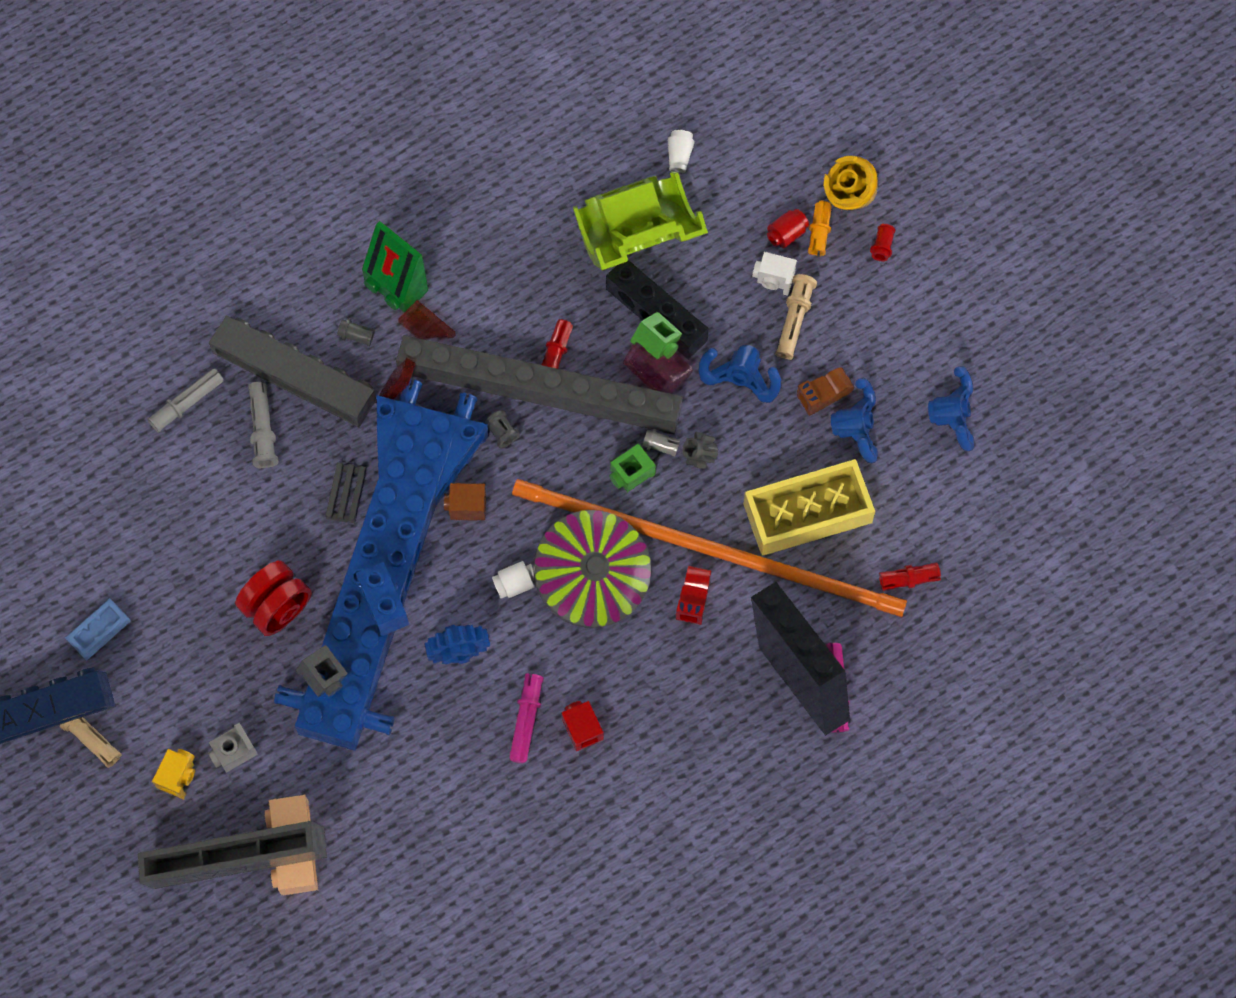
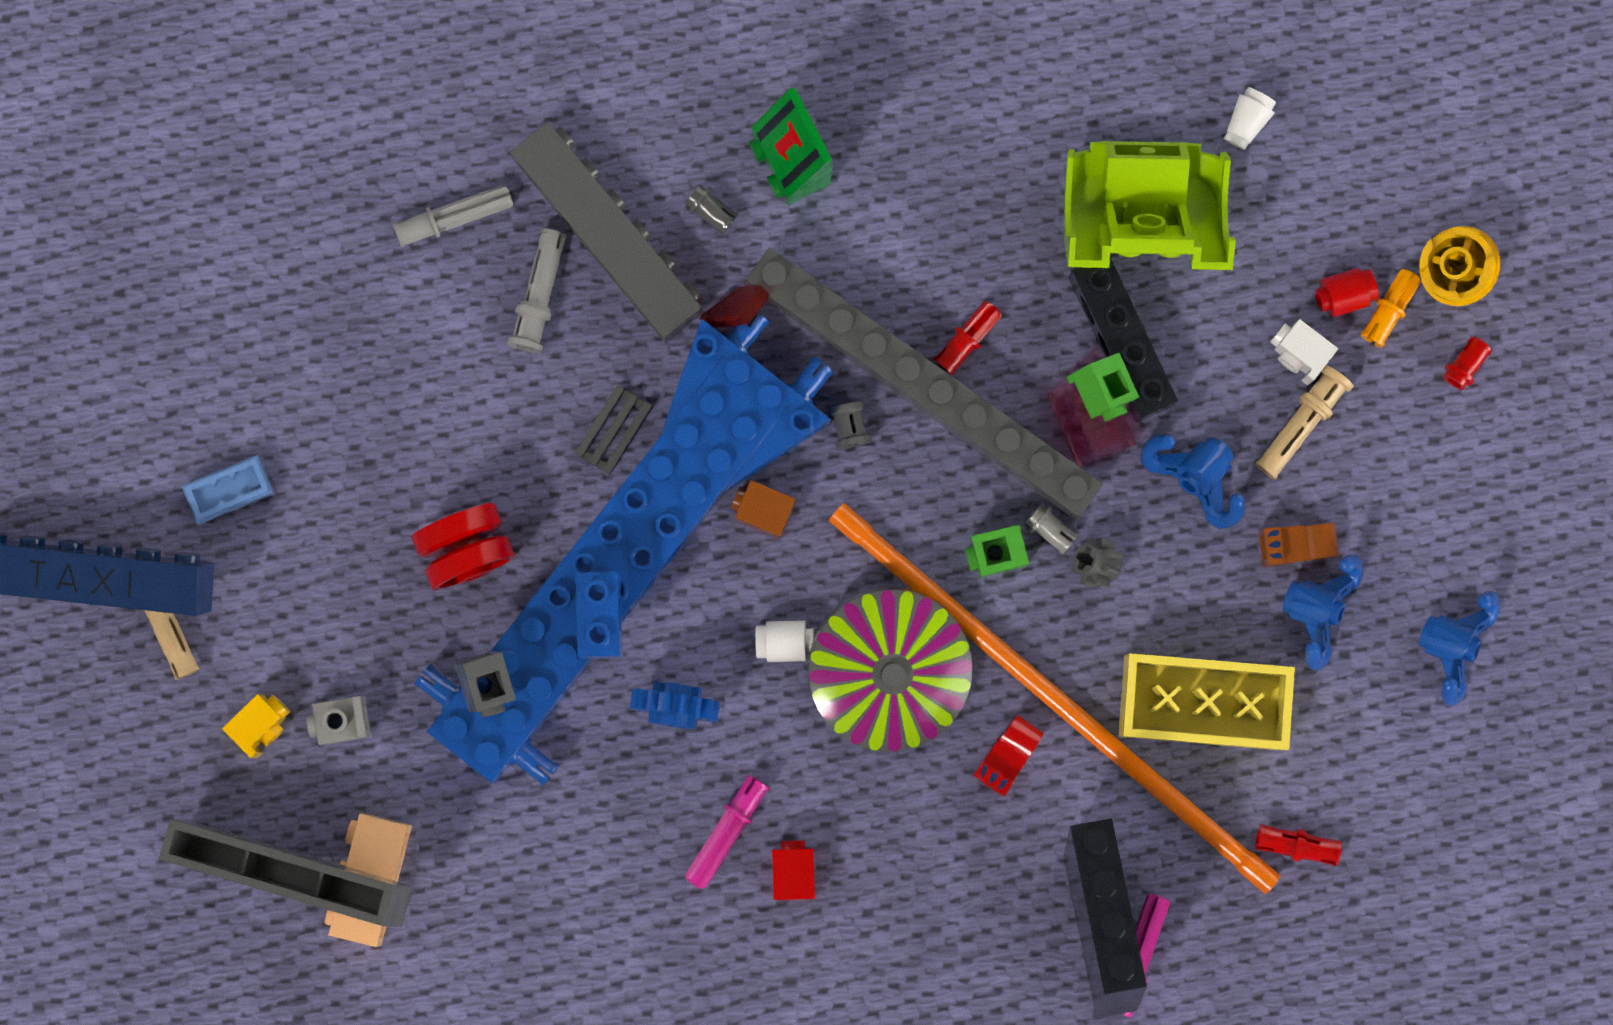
camera: 20 degrees right, 15 degrees up
(424, 323) = (807, 231): clear red tile -> none

